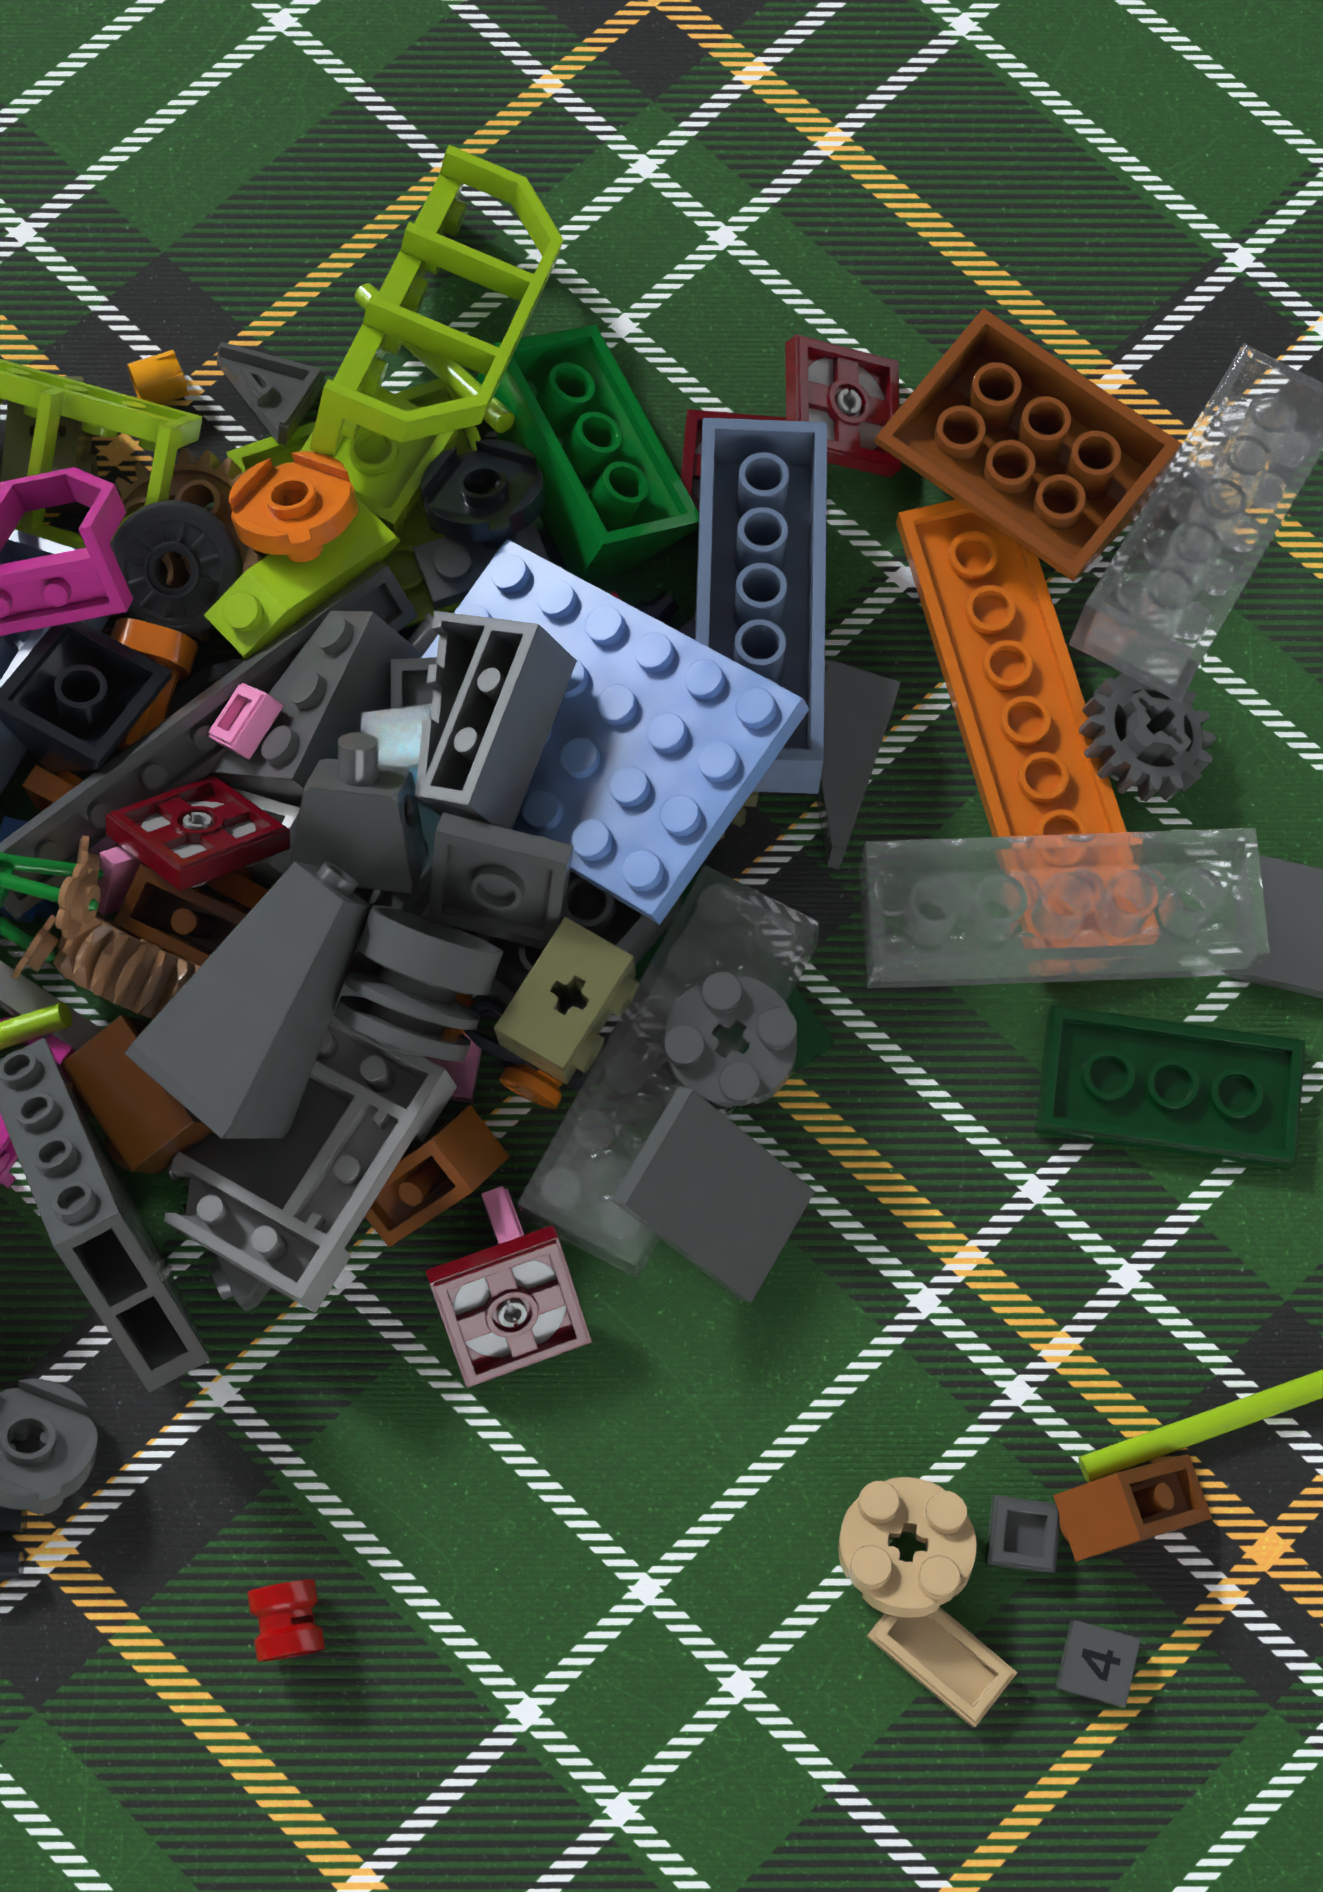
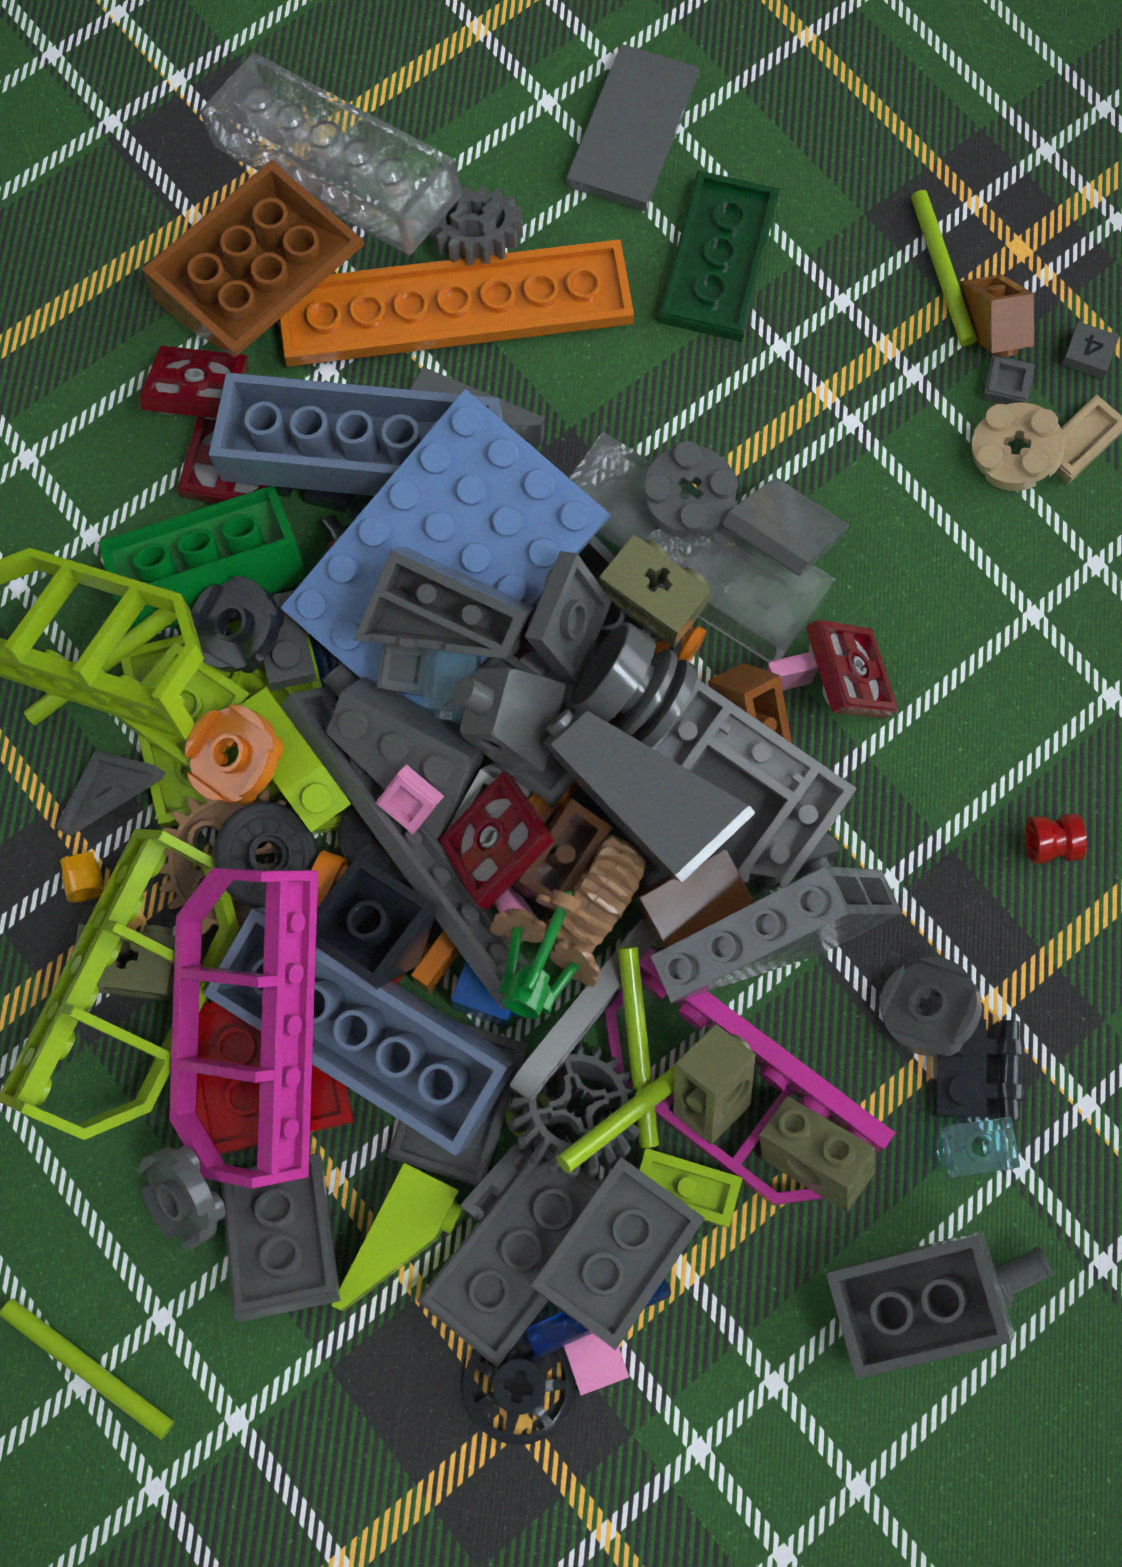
camera: 85 degrees left, 0 degrees up
(1062, 908) = (607, 284): clear brick -> none

